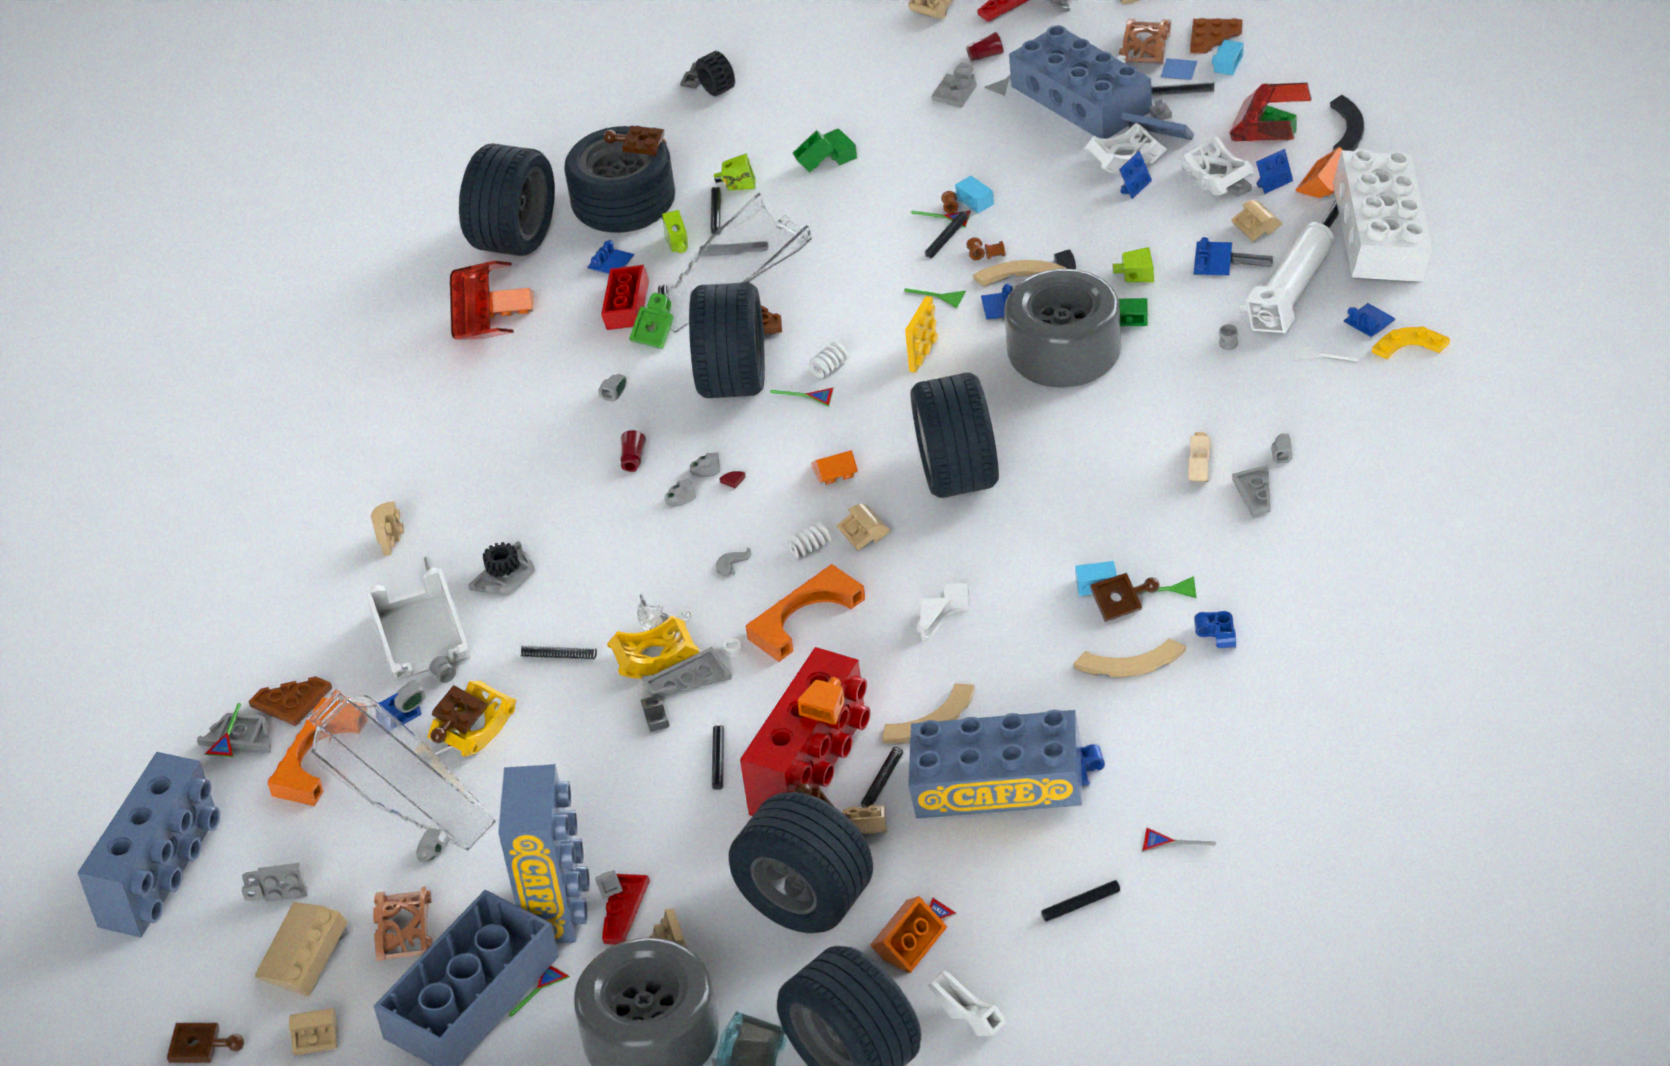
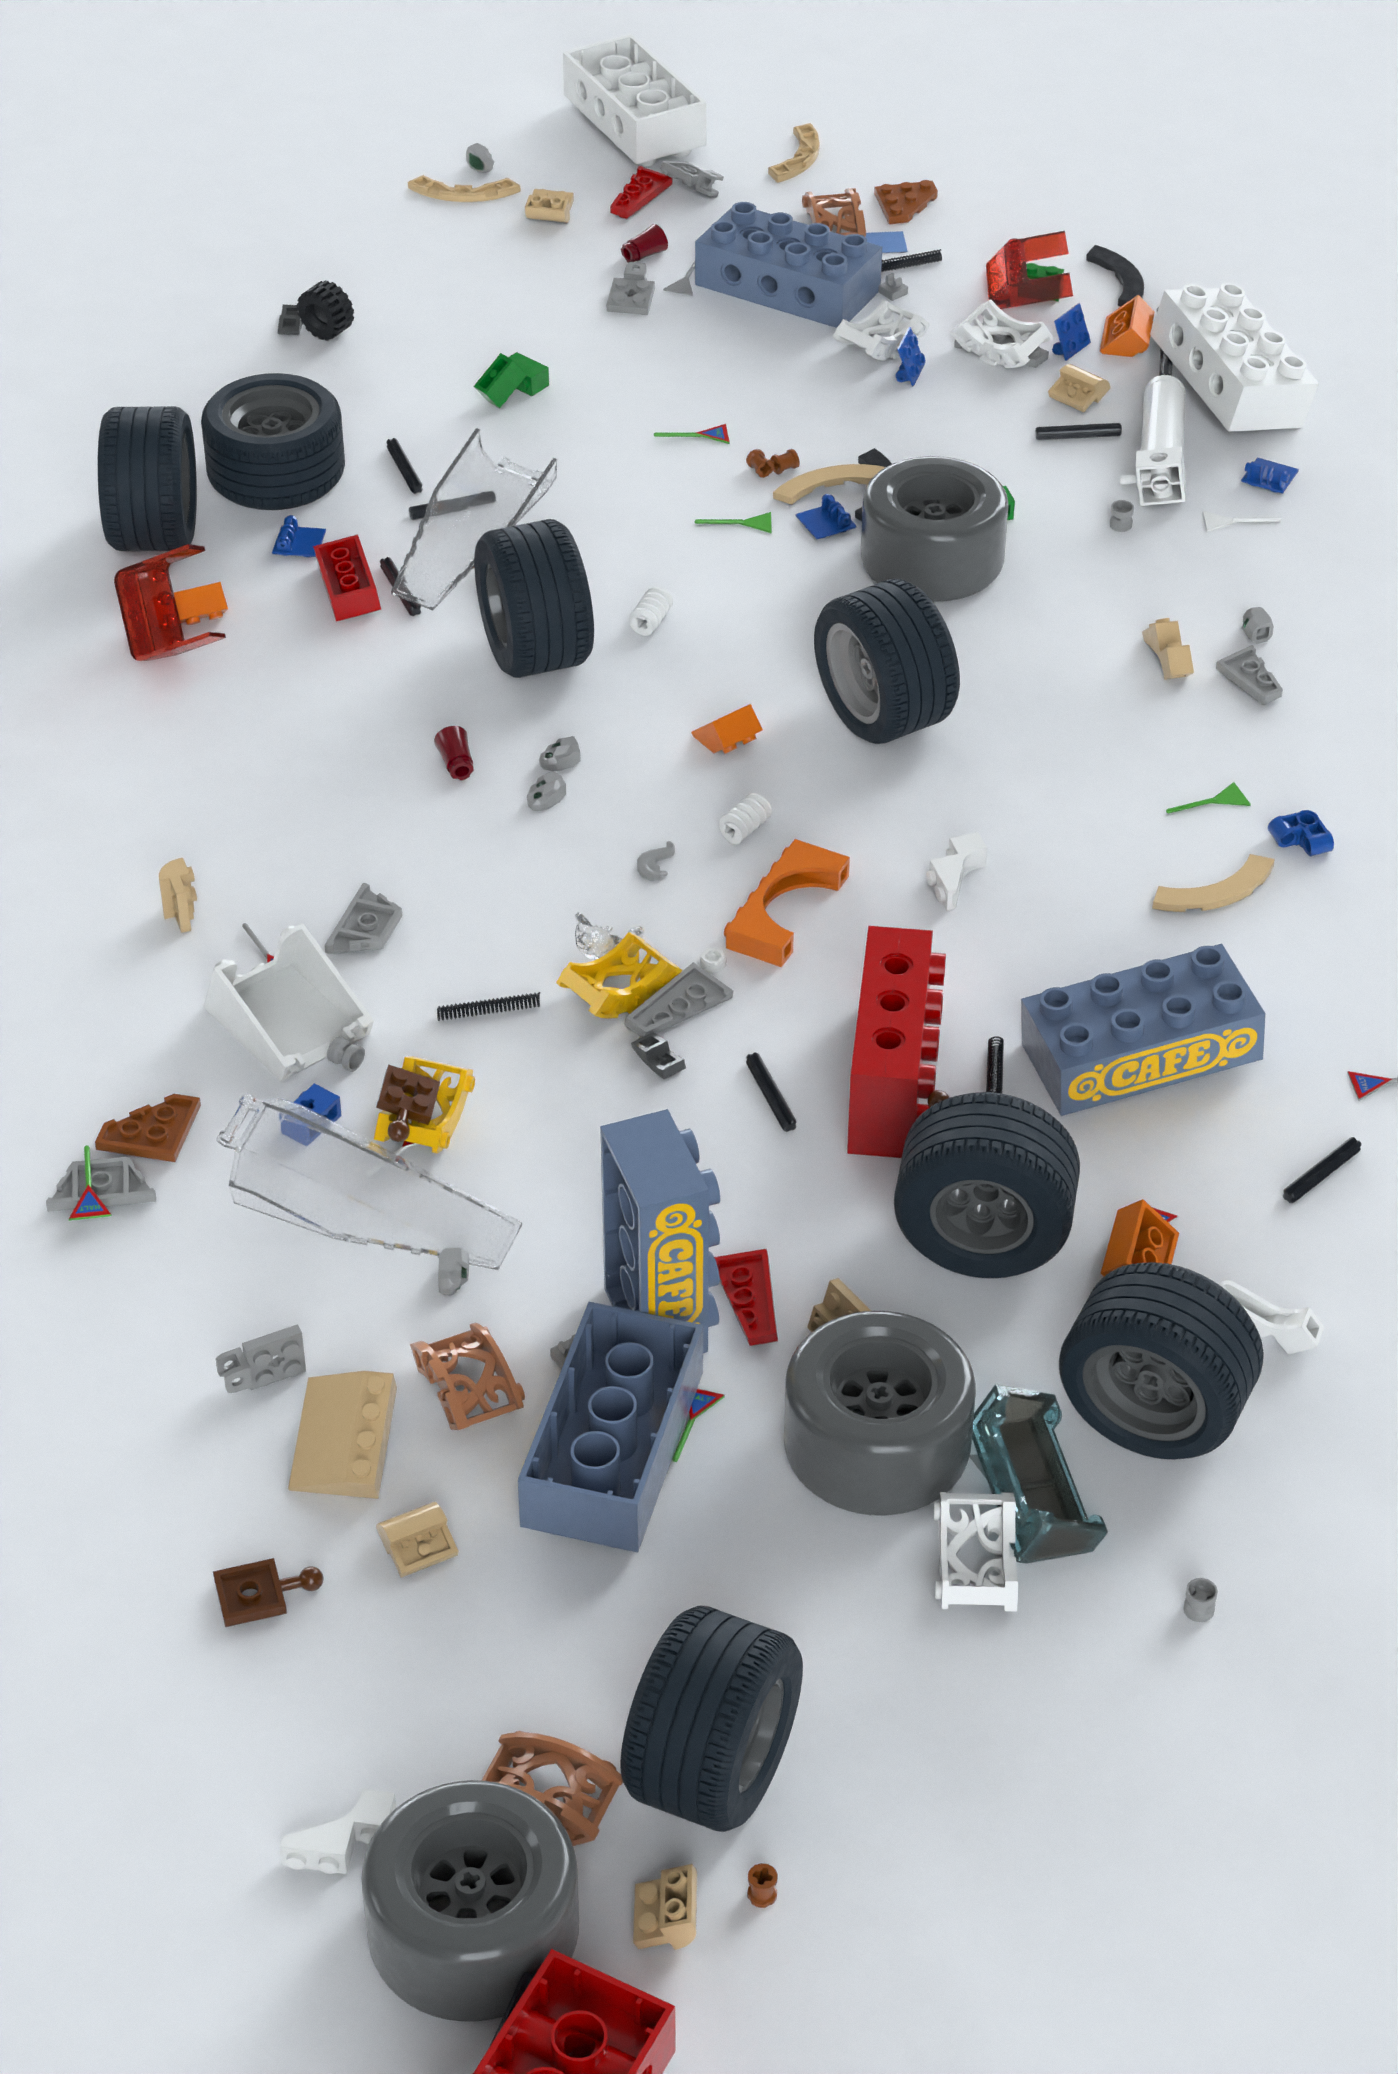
camera: 25 degrees left, 0 degrees up
(149, 844) = (68, 1344): sand blue brick -> none
(289, 779) = (208, 1228): orange arch -> none
(409, 696) = (331, 1090): light grey rock -> none
(504, 566) = (357, 916): black tyre -> none
(608, 883) = (728, 1267): light grey tile -> none
(613, 387) = (386, 684): light grey rock -> none
(632, 141) = (291, 385): reddish brown plate -> none
(658, 314) = (406, 590): bright green plate -> none
(677, 239) = (371, 494): lime torso -> none
(732, 479) = (601, 765): dark red tile -> none
(737, 174) = (413, 419): lime torso -> none
(822, 396) = (660, 654): piece -> none
(822, 701) = (924, 985): orange torso -> none
(862, 526) = (803, 792): tan brick -> none
(921, 334) = (761, 562): yellow plate -> none
(946, 234) = (713, 453): black axle -> none
(949, 200) = (696, 414): dark orange bush -> none
(949, 710) = (1032, 982): tan tile -> none
(974, 194) = (724, 404): medium azure brick -> none
(1093, 573) = (1124, 802): medium azure brick -> none
(1129, 600) = (1166, 804): reddish brown plate -> none
(1136, 266) = (972, 449): lime torso -> none
(1159, 126) = (912, 301): sand blue tile -> none
(1212, 257) = (1052, 433): blue hinge -> none
(1228, 57) = (940, 221): medium azure brick -> none
(1410, 336) = (1334, 484): yellow plate -> none

